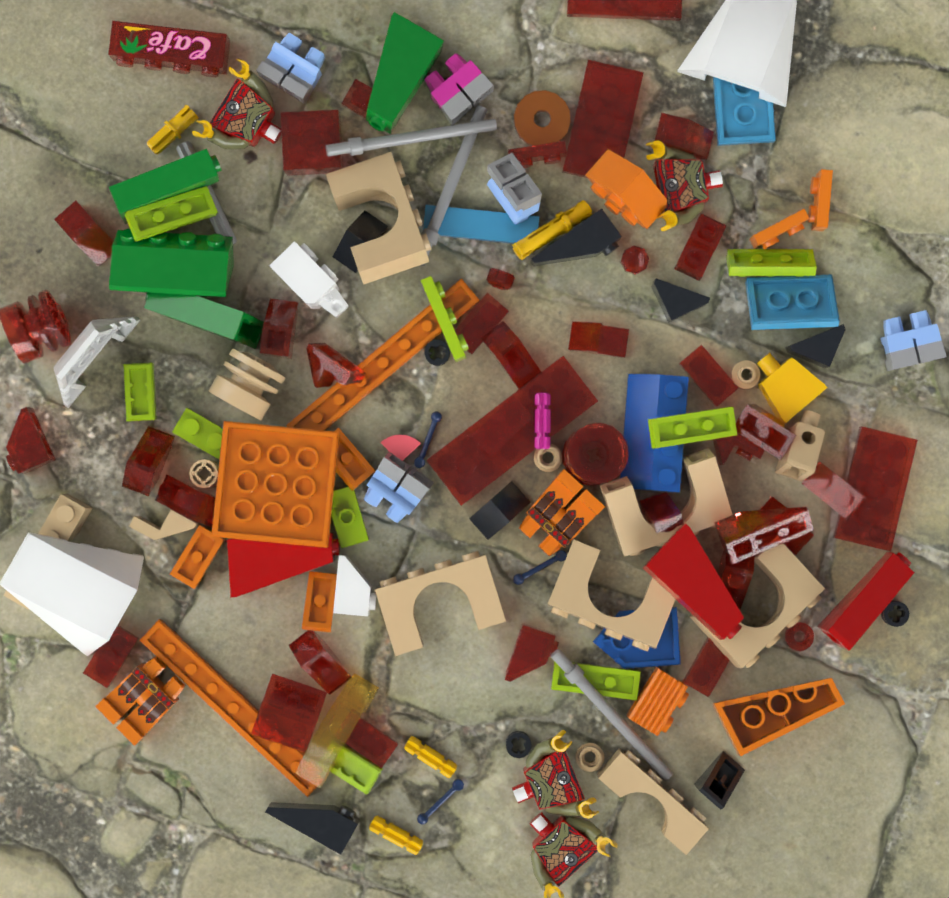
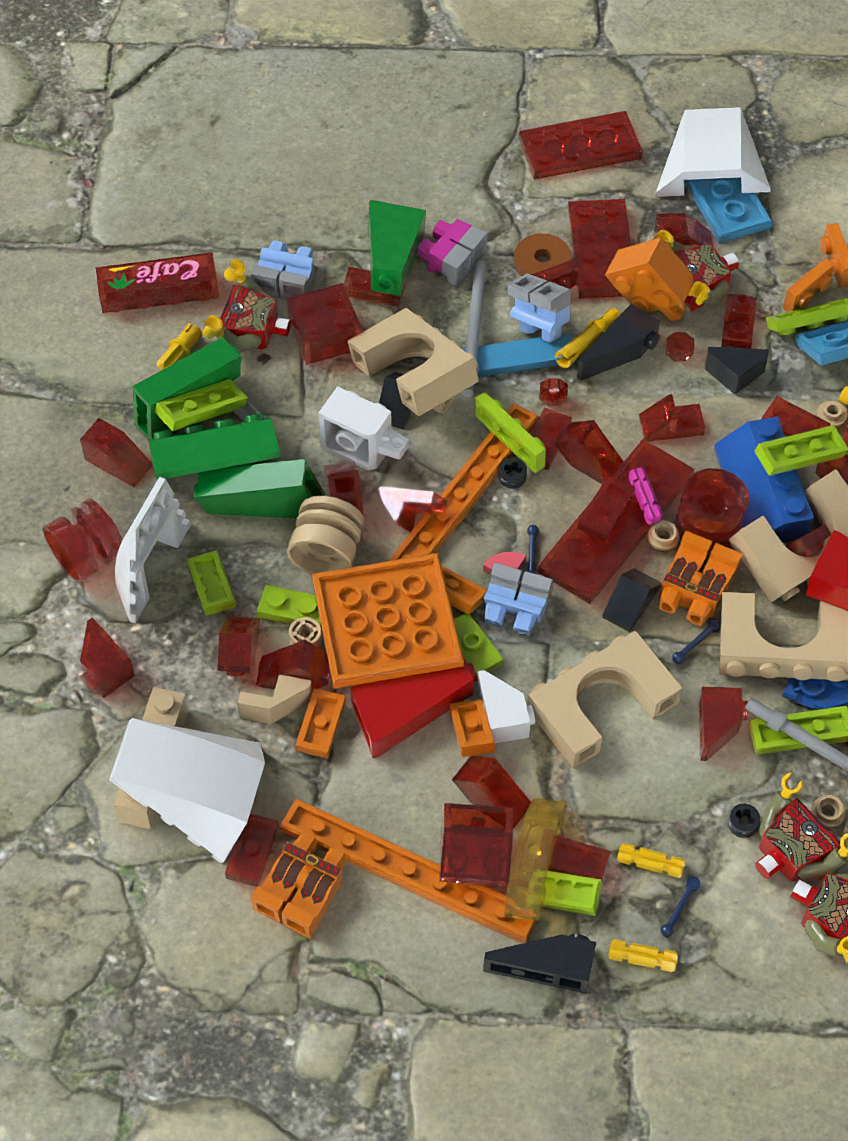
camera: 15 degrees left, 30 degrees down
(356, 145) = (373, 303): light grey bar -> none

